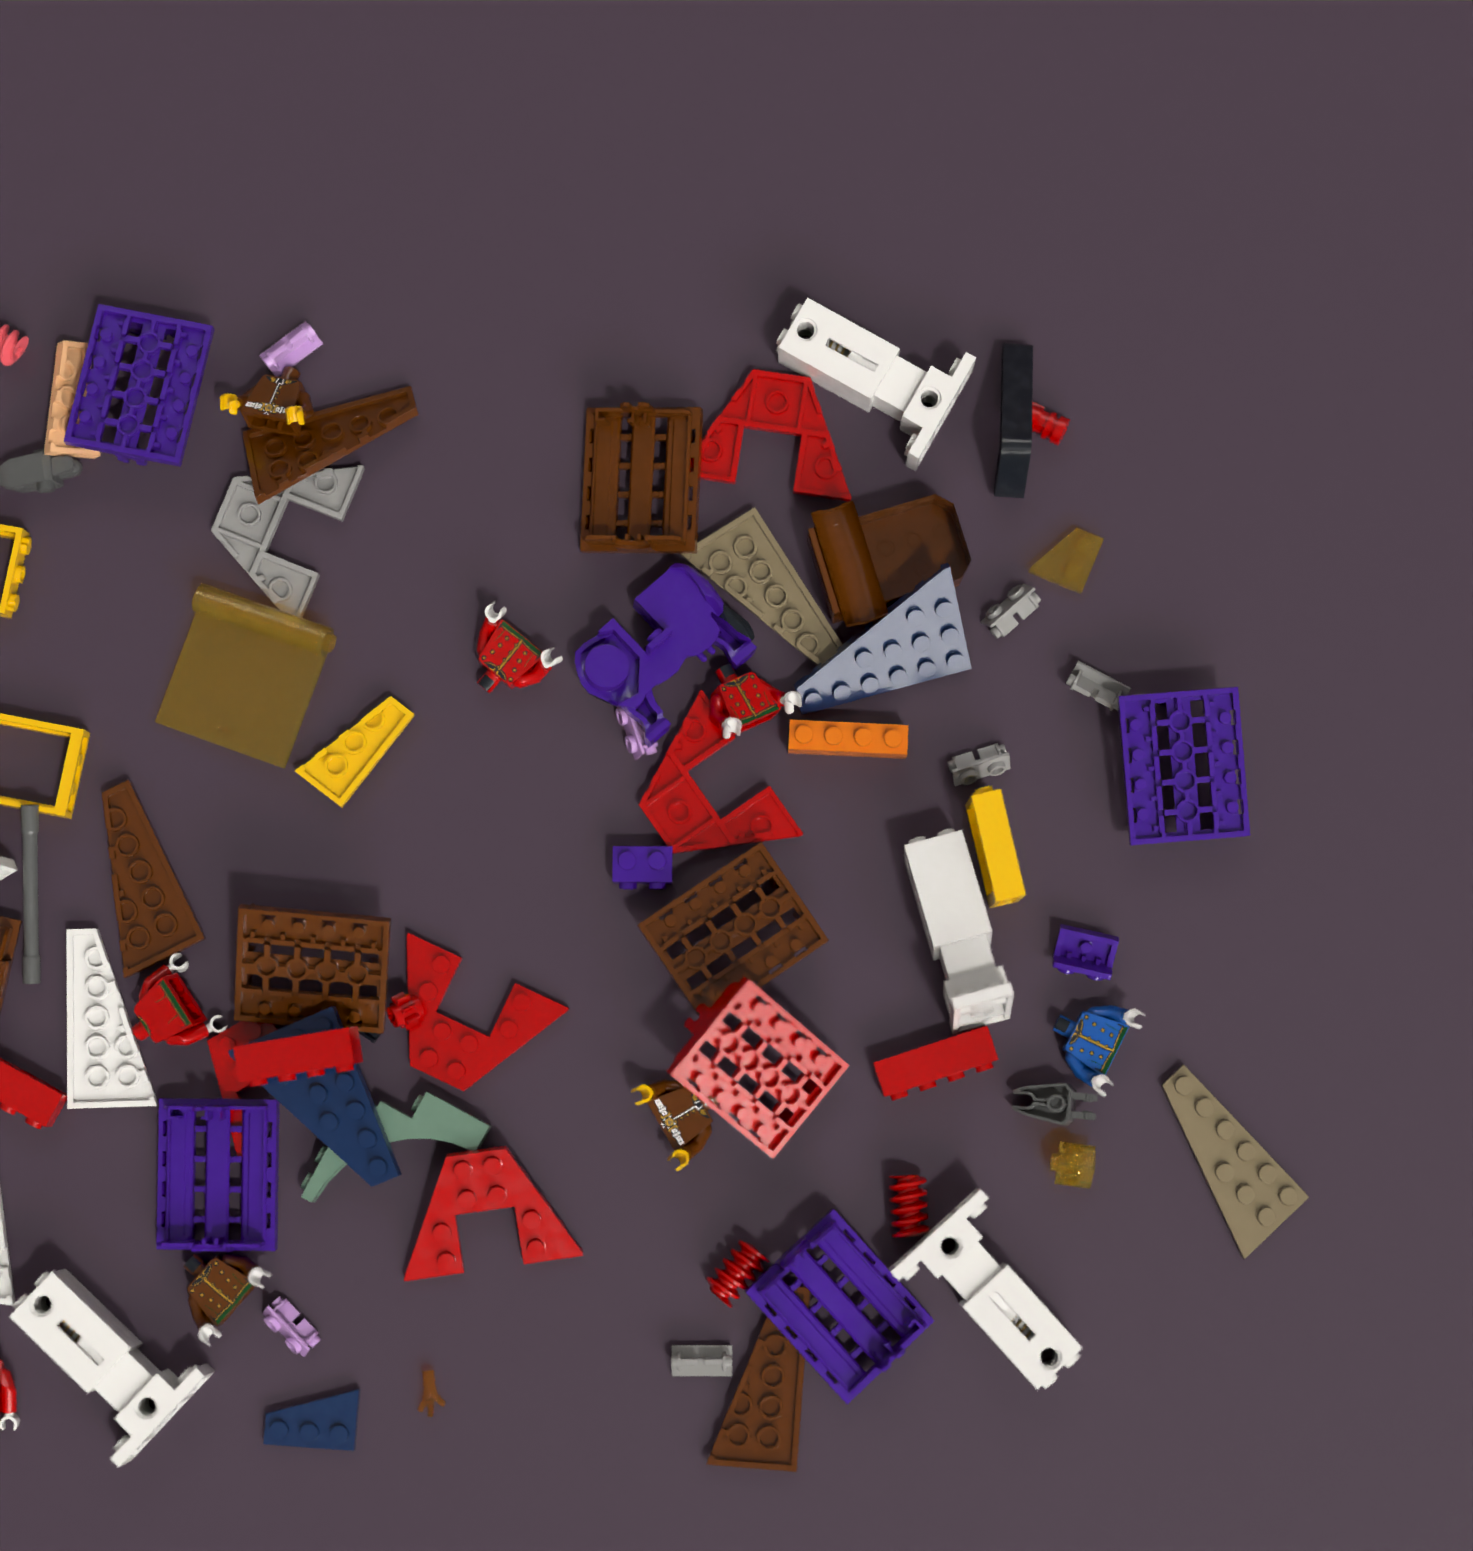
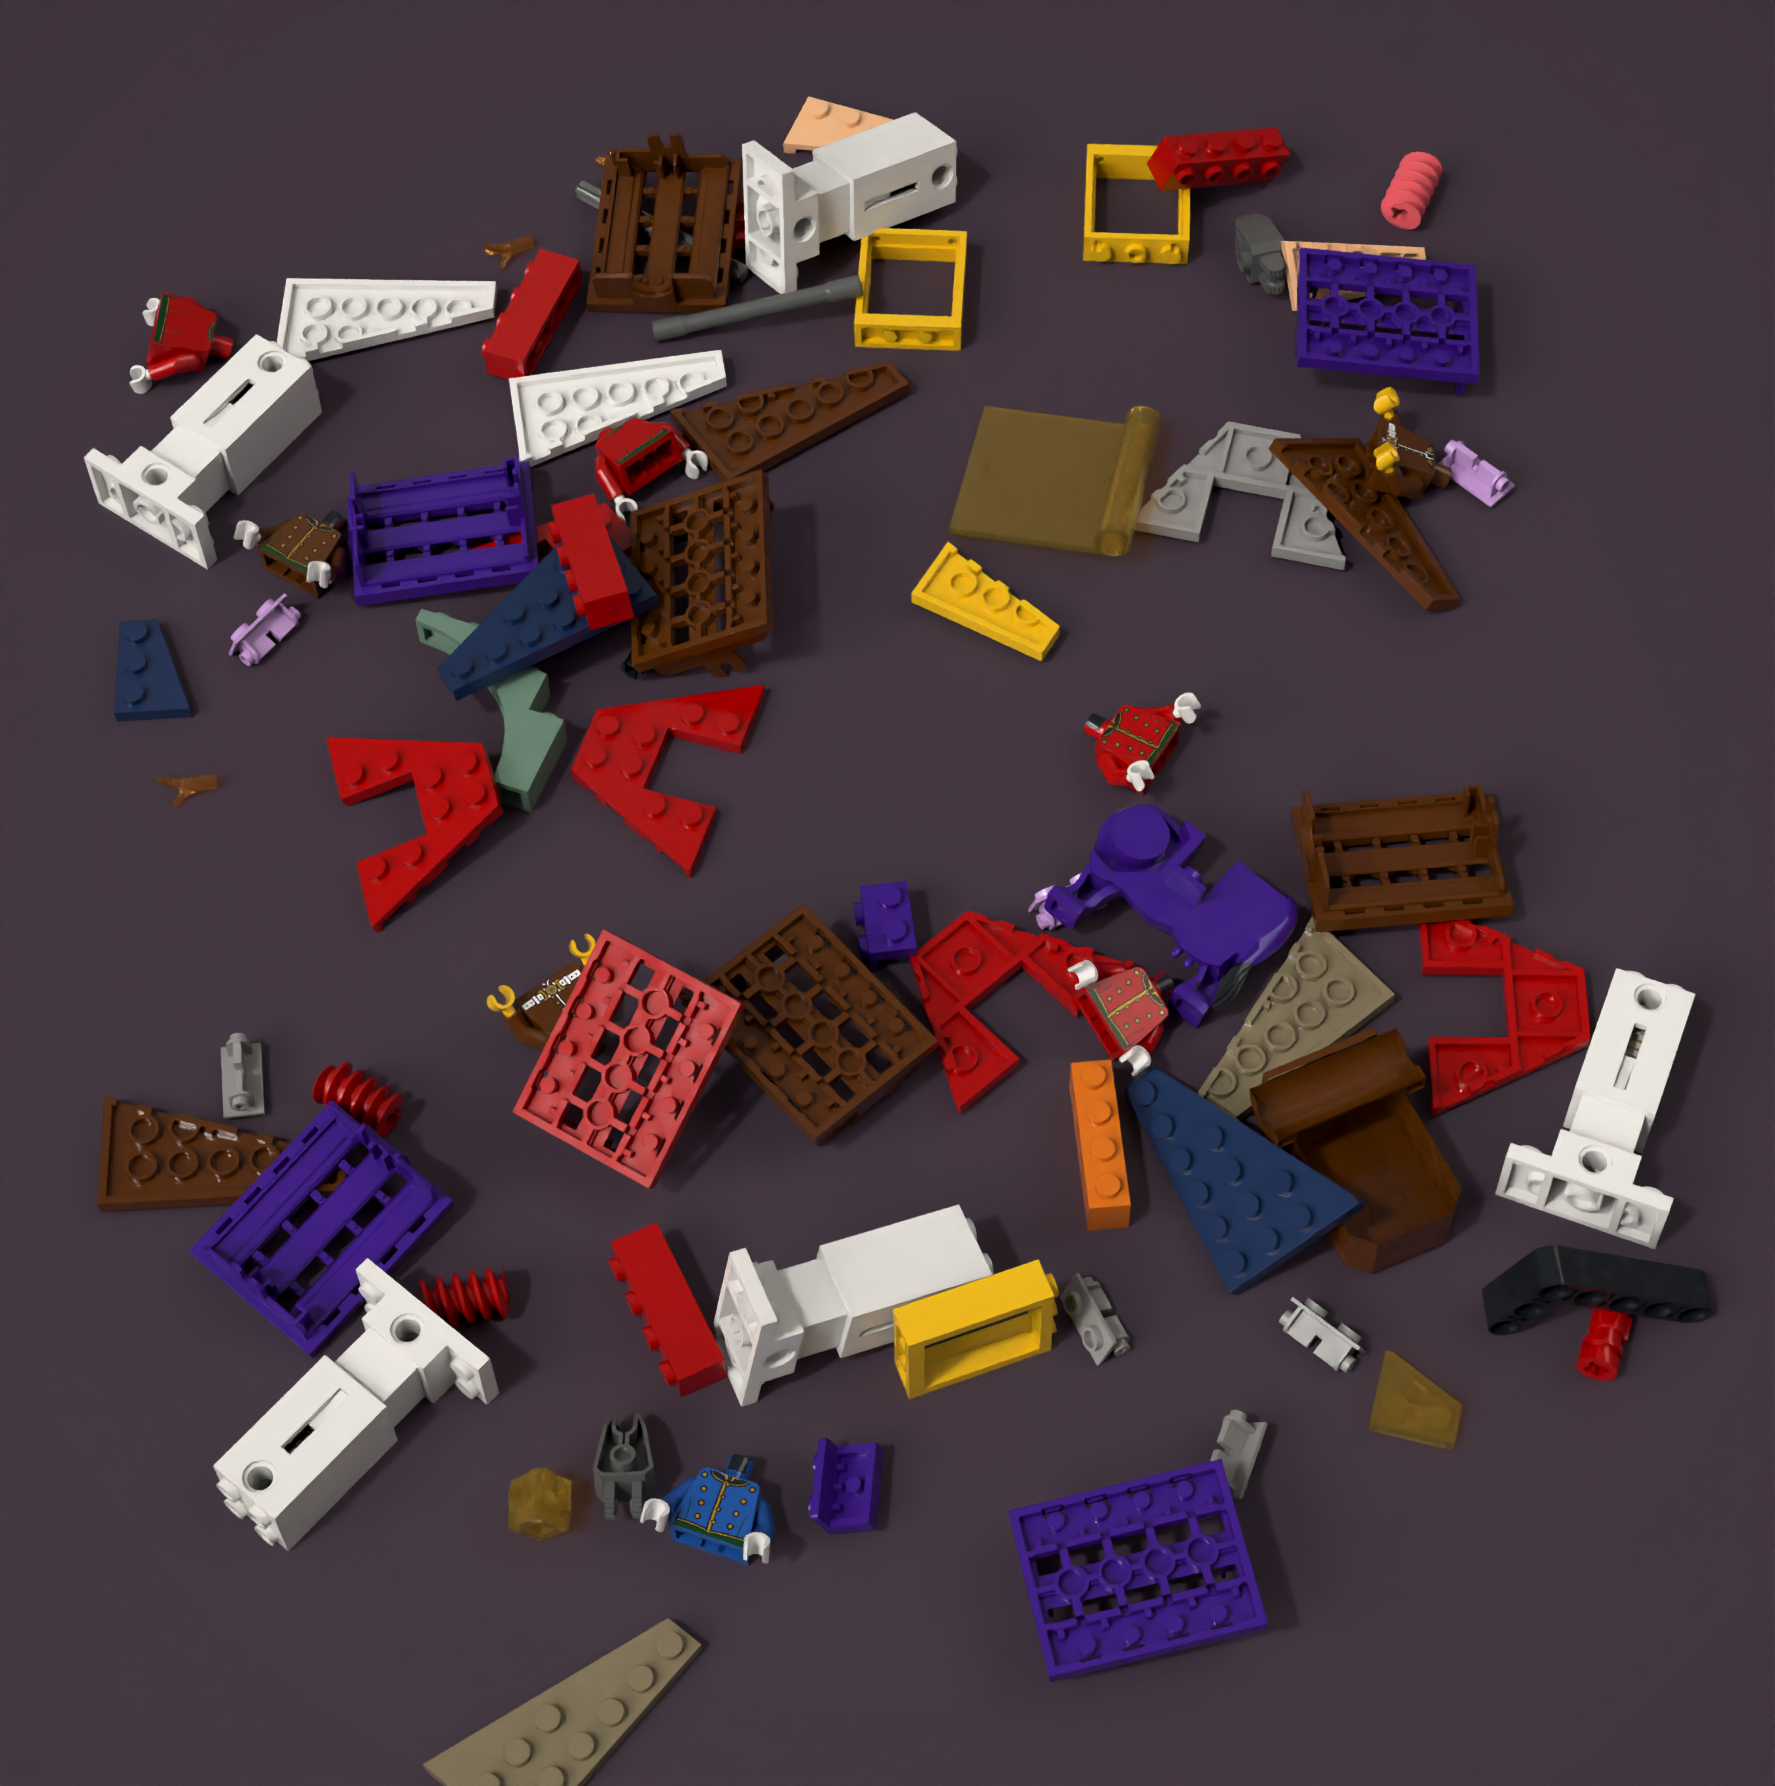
camera: 80 degrees right, 25 degrees down
(405, 1011) = (663, 685): red gear -> none

